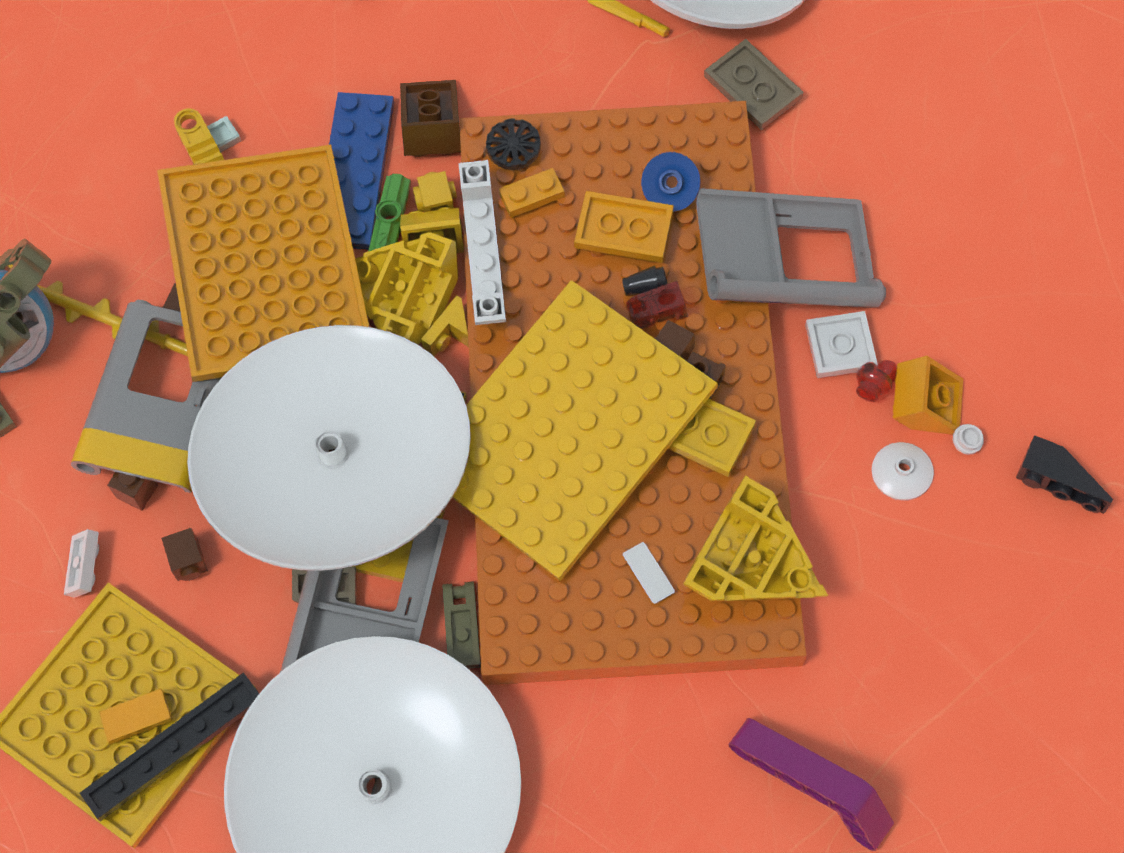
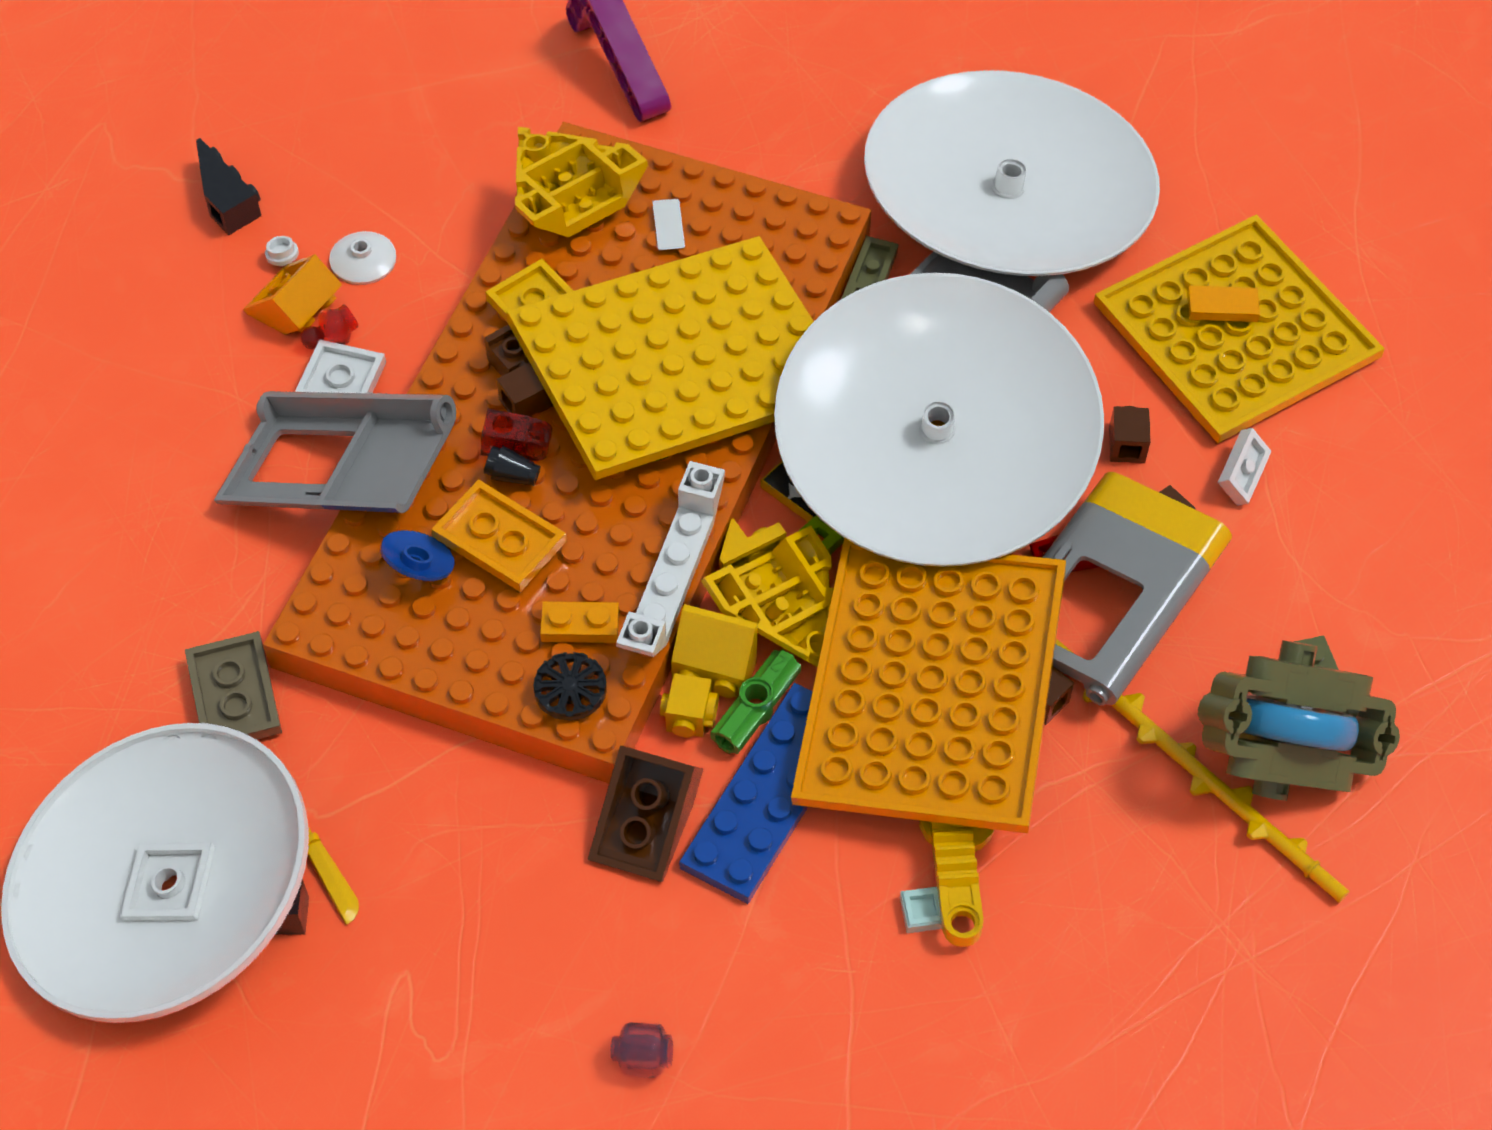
camera: 160 degrees left, 10 degrees down
(170, 747) = (1193, 262): black plate -> none

